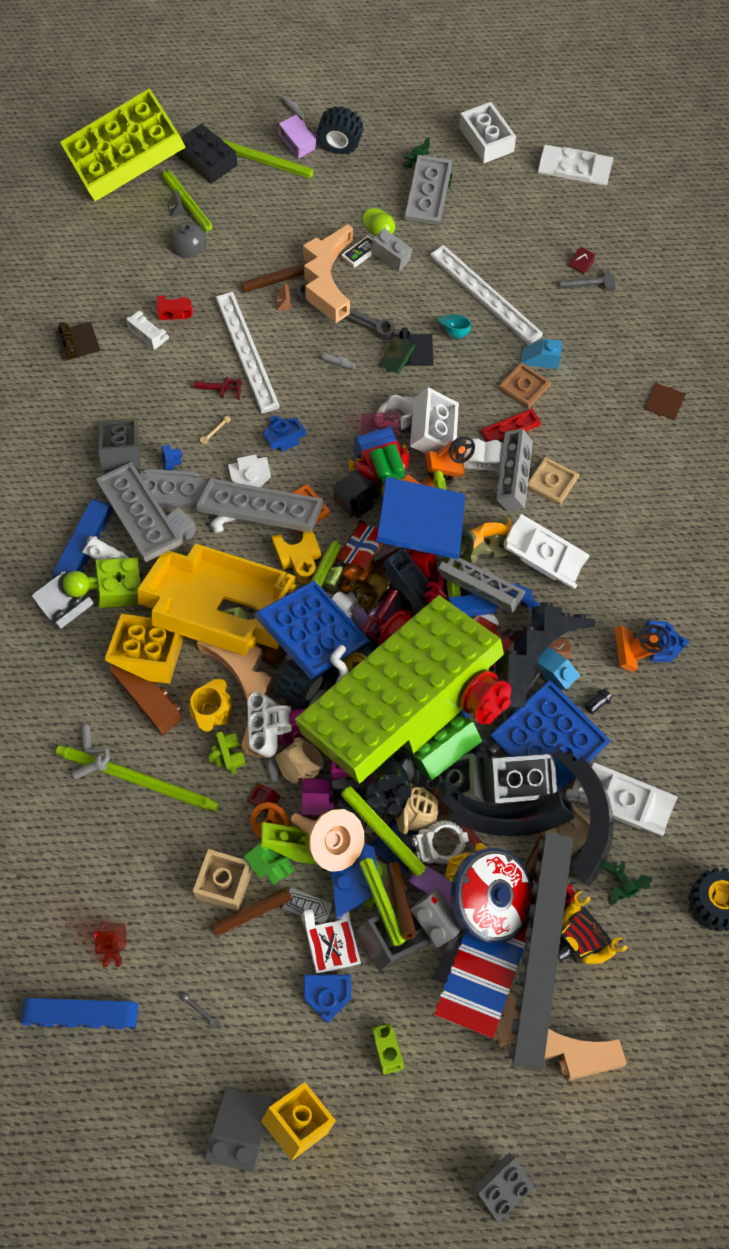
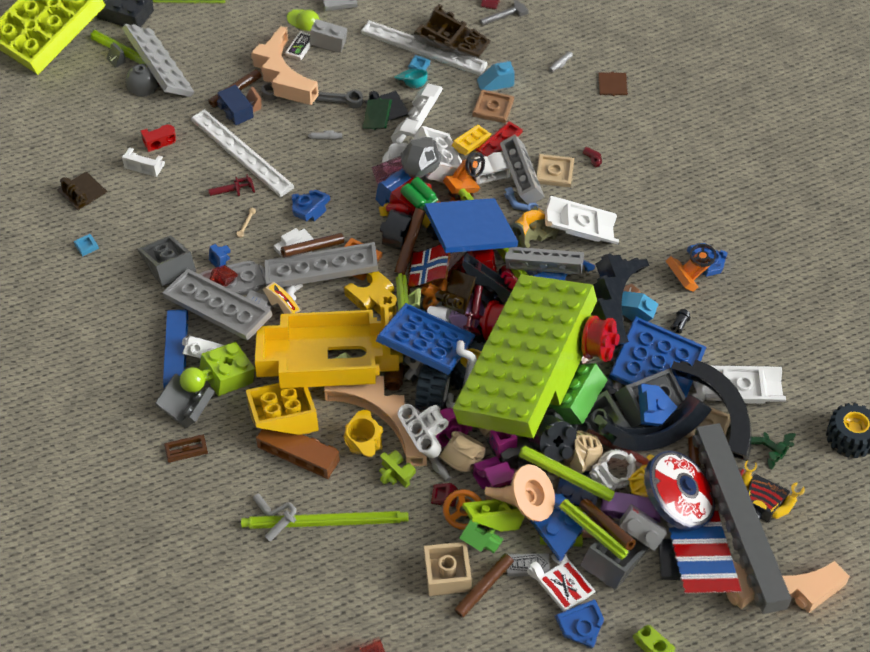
camera: 25 degrees left, 10 degrees down
(48, 658) = (186, 451): none -> reddish brown tile
(54, 400) = (86, 245): none -> dark azure tile
(162, 481) = (223, 275): none -> clear red slope
(202, 523) = (278, 295): none -> slope
(211, 223) = (158, 60): none -> light grey plate
(262, 297) = (235, 105): none -> dark blue brick
(263, 479) = (312, 245): none -> reddish brown piece
(358, 510) = (410, 241): none -> reddish brown piece
(407, 423) = (420, 157): none -> dark grey helmet
(448, 359) = (422, 104): none -> white piece
(471, 311) = (419, 63): none -> dark azure tile
(478, 417) = (471, 140): none -> yellow plate
(491, 503) = (516, 205): none -> medium blue arm
(514, 789) = (654, 405): none -> blue plate
(518, 289) = (450, 35): none -> dark brown wedge
(602, 479) = (595, 156): none -> dark red arm
(621, 358) = (560, 62): none -> light grey piece

